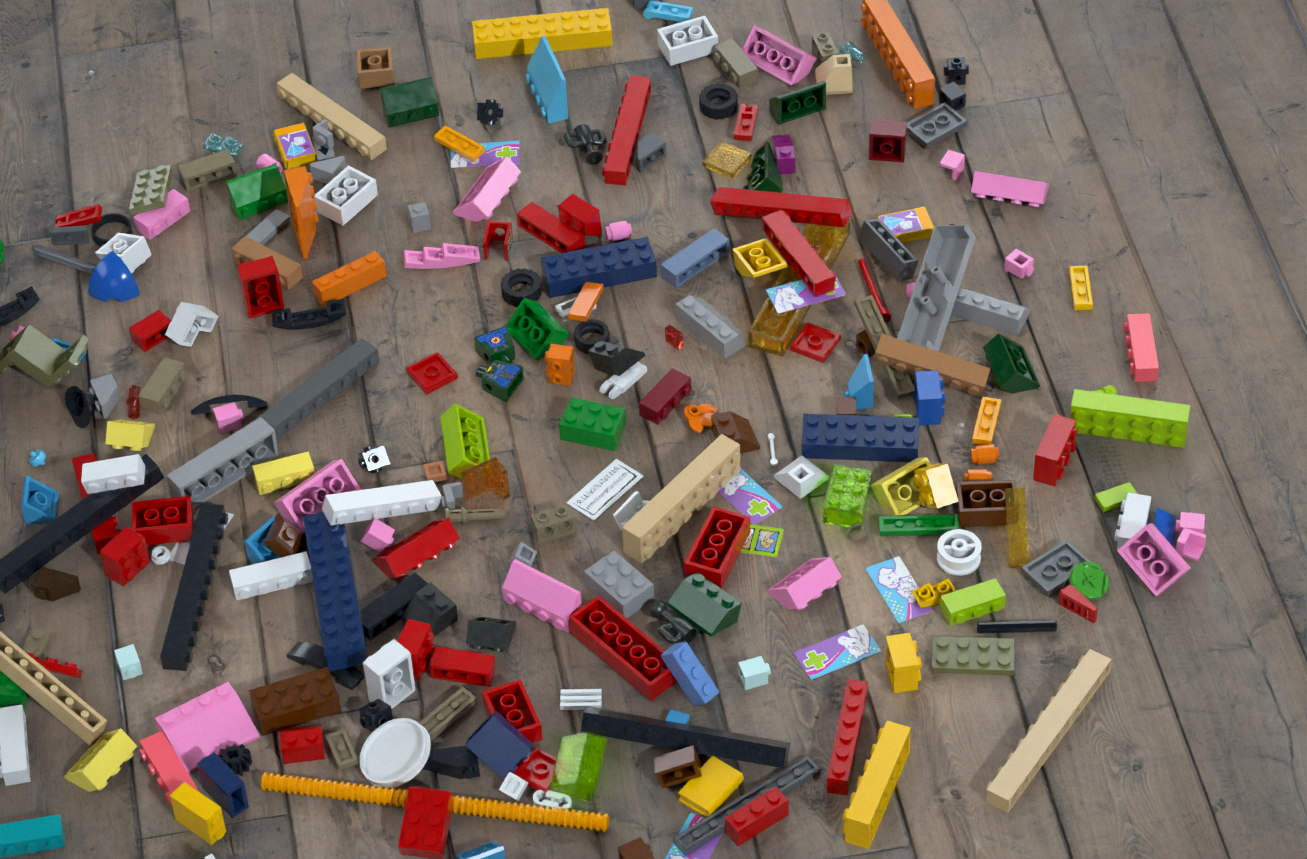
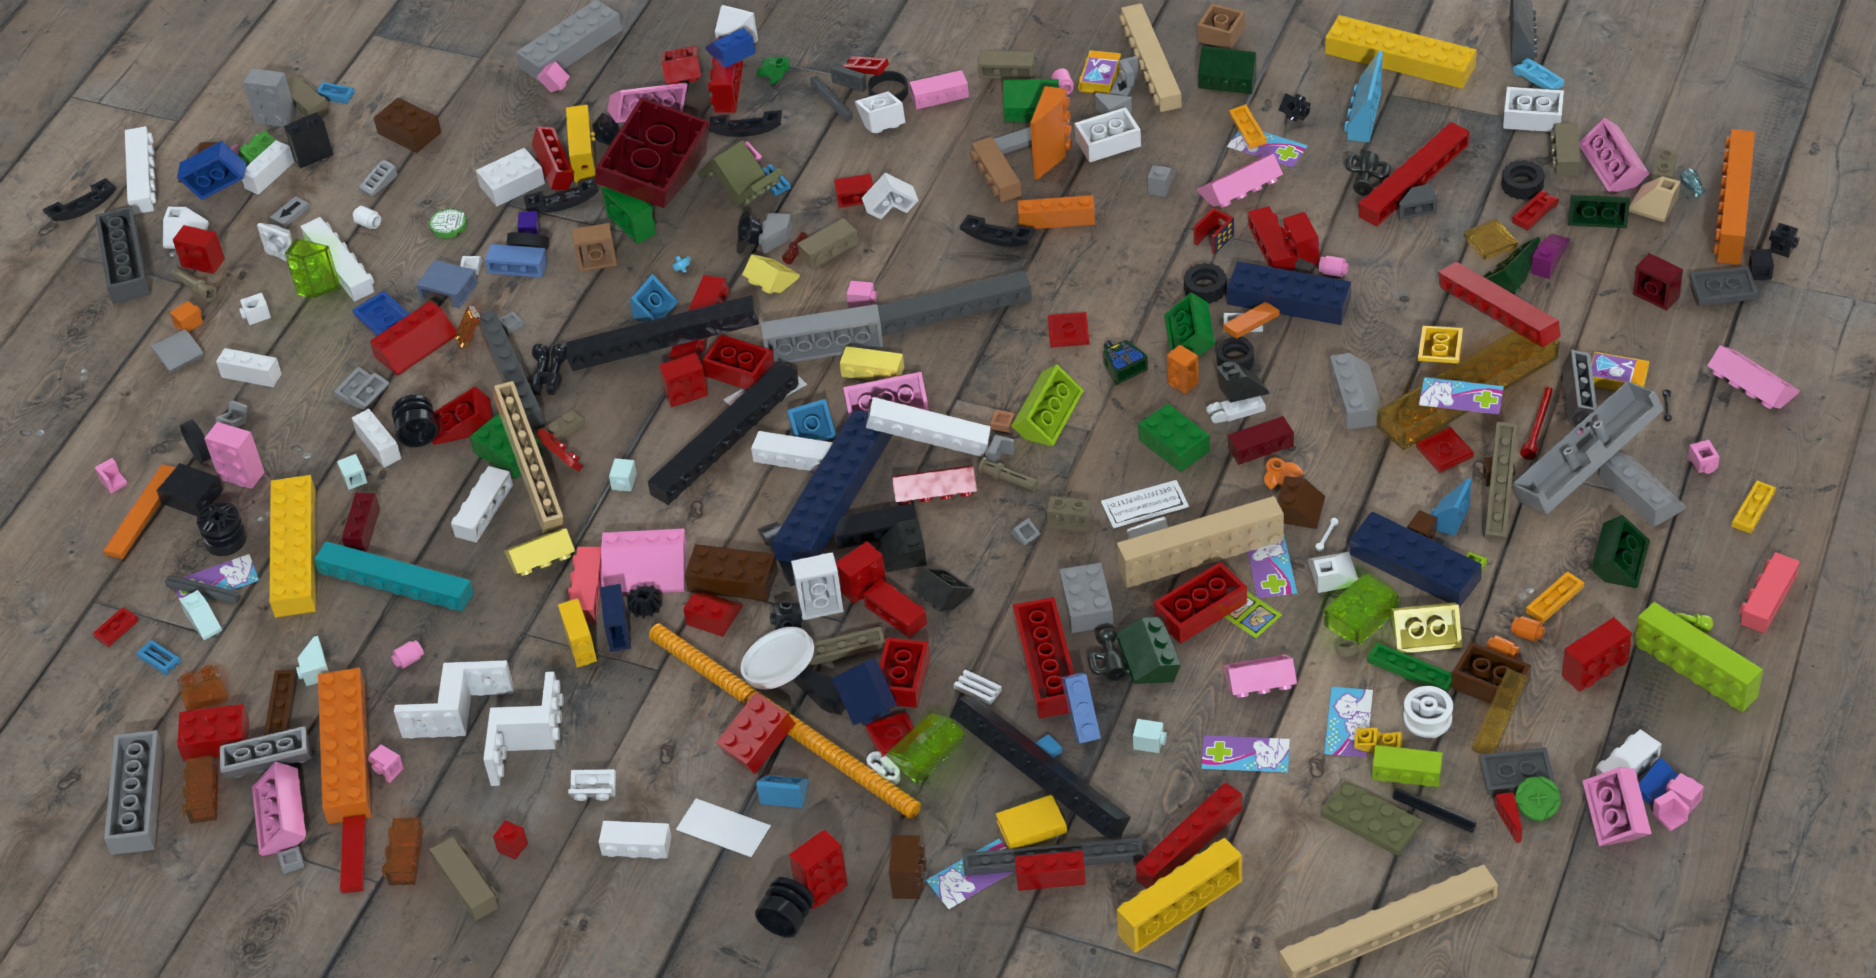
camera: 35 degrees right, 0 degrees up
(54, 584) = (613, 380): dark brown slope -> none
(112, 280) = (852, 132): blue brick -> none
(113, 474) = (711, 301): white brick -> none
(151, 189) = (943, 63): olive plate -> none
(160, 555) = (718, 393): white plate -> none
(205, 407) = (889, 289): black slope -> none
(216, 144) = (1042, 49): clear light blue slope -> none
(260, 287) = (966, 187): red brick -> none
(284, 537) = (825, 421): reddish brown slope -> none
(341, 749) = (739, 634): dark tan plate -> none
(378, 535) = (908, 456): bright pink brick -> none
(379, 455) = (962, 382): brick -> none
(448, 256) = (1153, 226): bright pink slope -> none
(485, 477) = (1035, 444): clear orange bracket -> none
(495, 346) = (1142, 328): dark green torso -> none
(513, 786) = (858, 737): white plate -> none
(540, 595) = (1005, 573): bright pink slope -> none
(674, 337) = (1311, 387): clear red tile -> none
(677, 767) = (1010, 789): reddish brown brick -> none
(695, 258) = (1386, 321): sand blue brick -> none
(799, 253) = (1478, 355): brick -> none
(902, 662) = (1290, 791): yellow brick -> none
(912, 357) = (1534, 518): medium nougat brick -> none
(929, 397) = (1508, 548): blue brick -> none
(935, 486) = (1447, 636): brick -> none
(953, 161) = (1712, 329): bright pink panel -> none
(1113, 497) = (1621, 728): lime tile -> none

